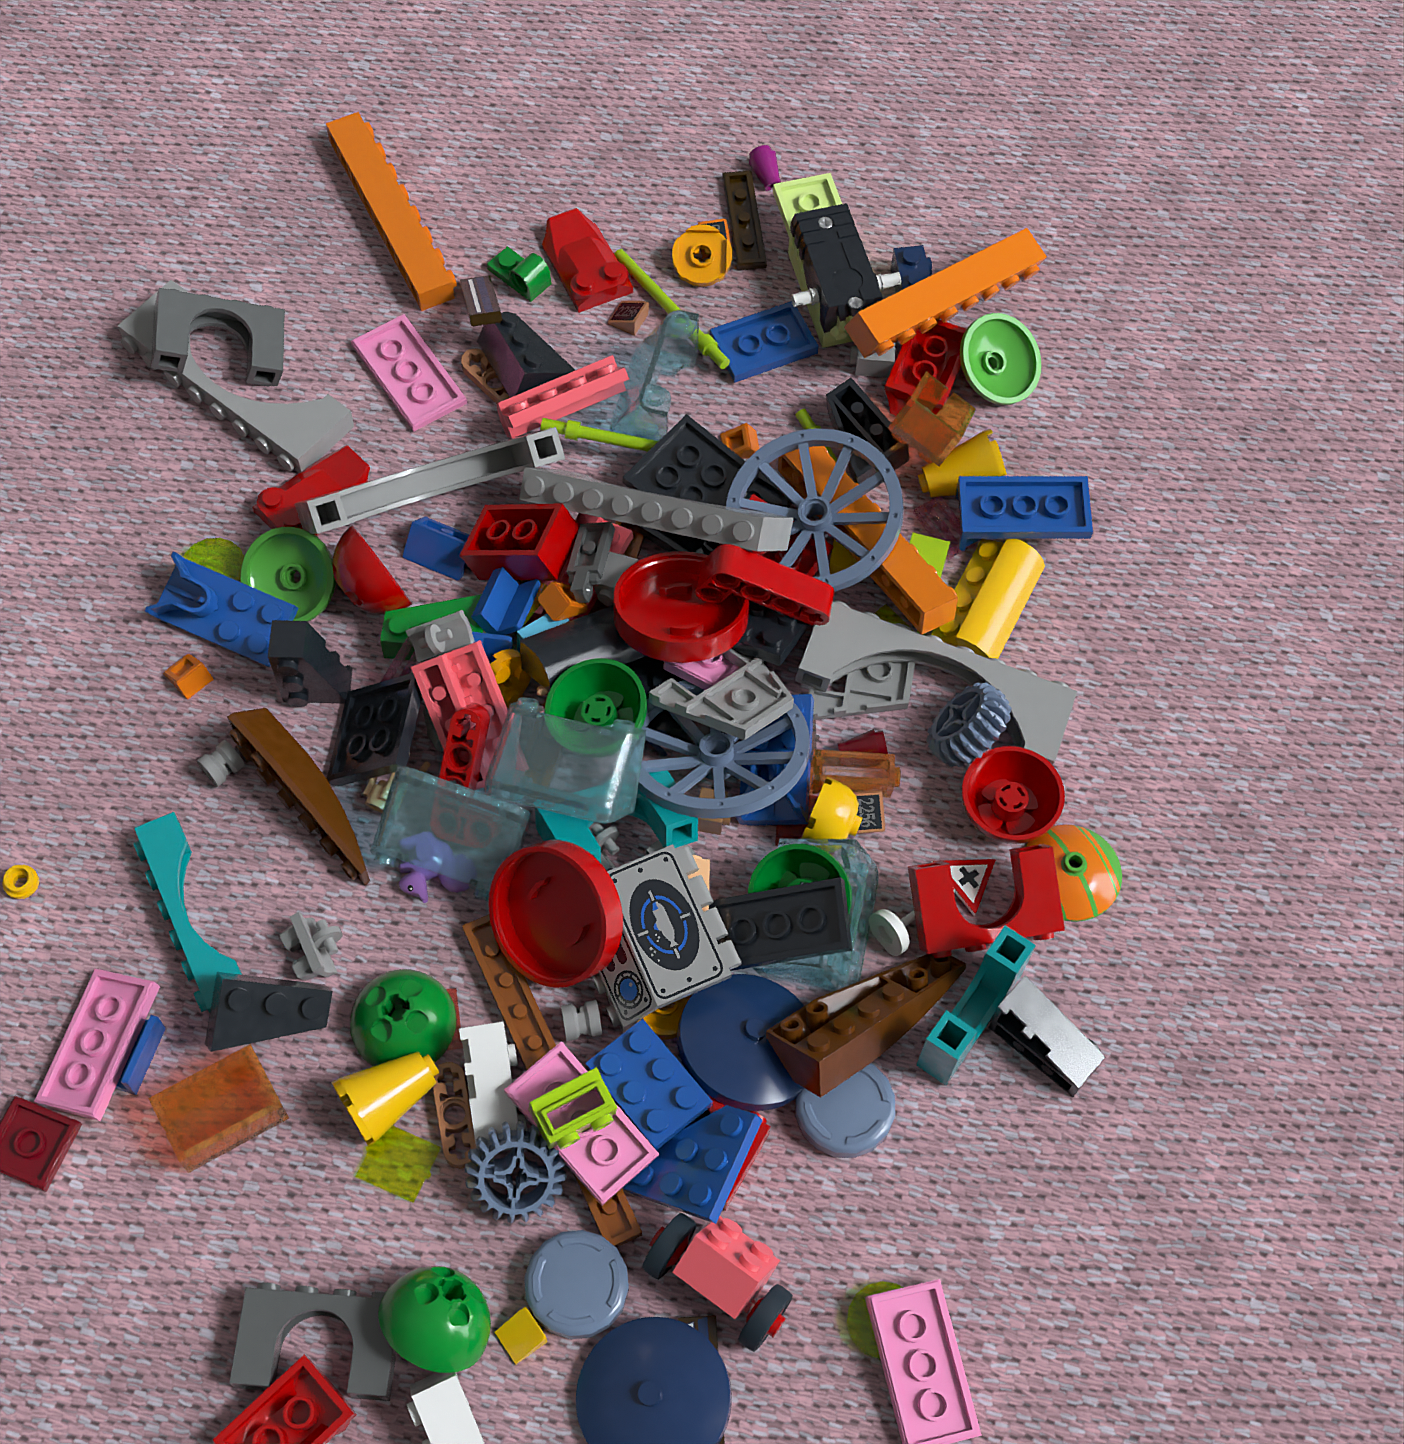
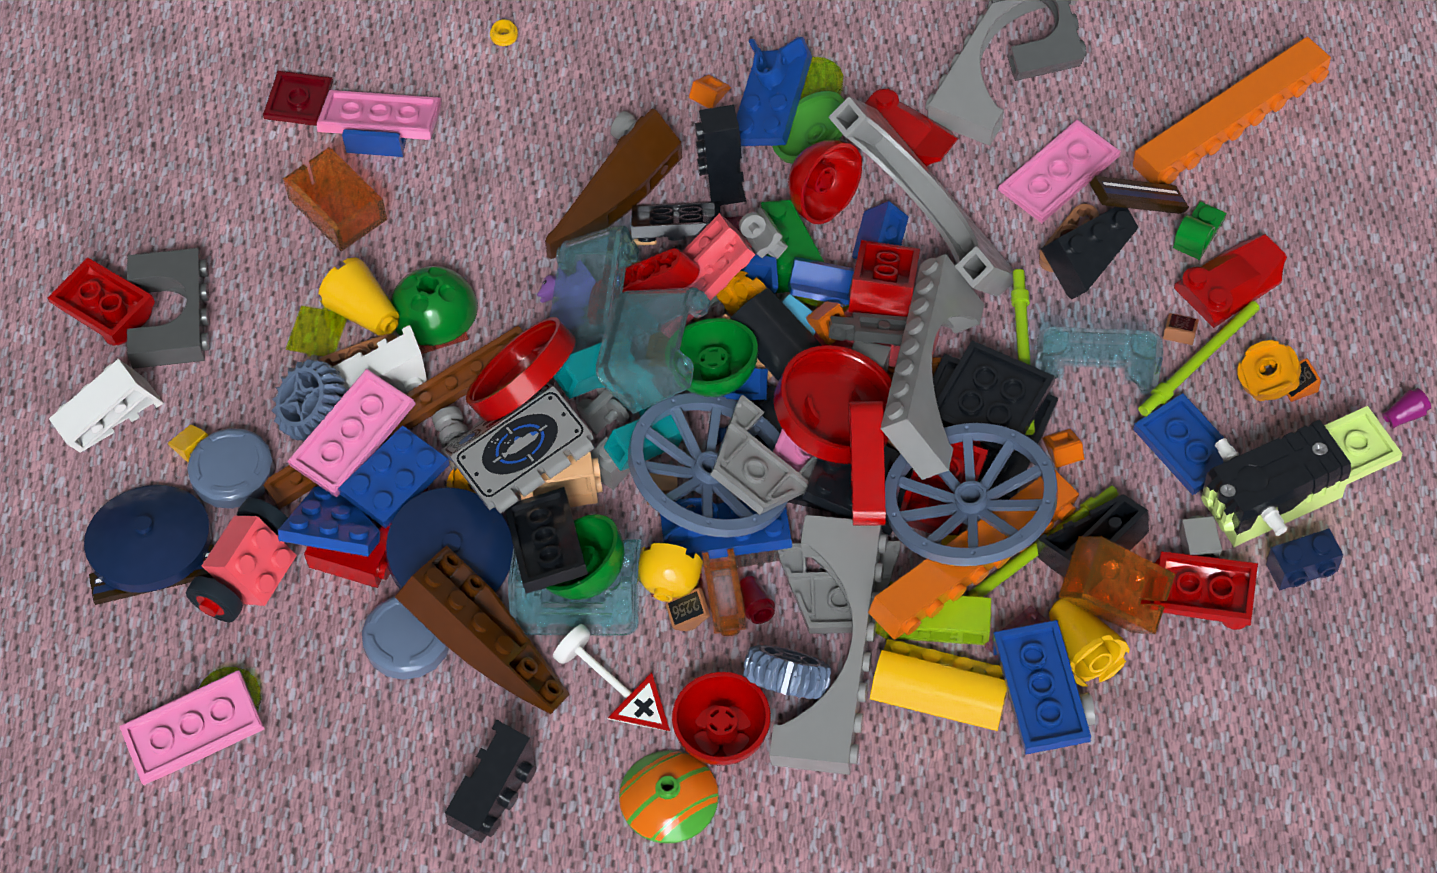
camera: 85 degrees right, 5 degrees down
(168, 856) = (539, 116): teal arch -> none
(262, 1009) = (416, 203): black wedge -> none
(317, 942) = (483, 229): light grey hips -> none
(436, 1319) = (172, 377): green piece -> none
(561, 396) = (1054, 281): coral brick -> none
(568, 1133) = (367, 432): lime window -> none
(744, 220) = (1335, 403): dark brown tile -> none
(945, 293) = (1283, 580): orange brick -> none
(960, 1029) = (469, 705): teal arch -> none
(1011, 354) = (1203, 656): bright green dish -> none
(1033, 912) = (581, 686): red arch -> none

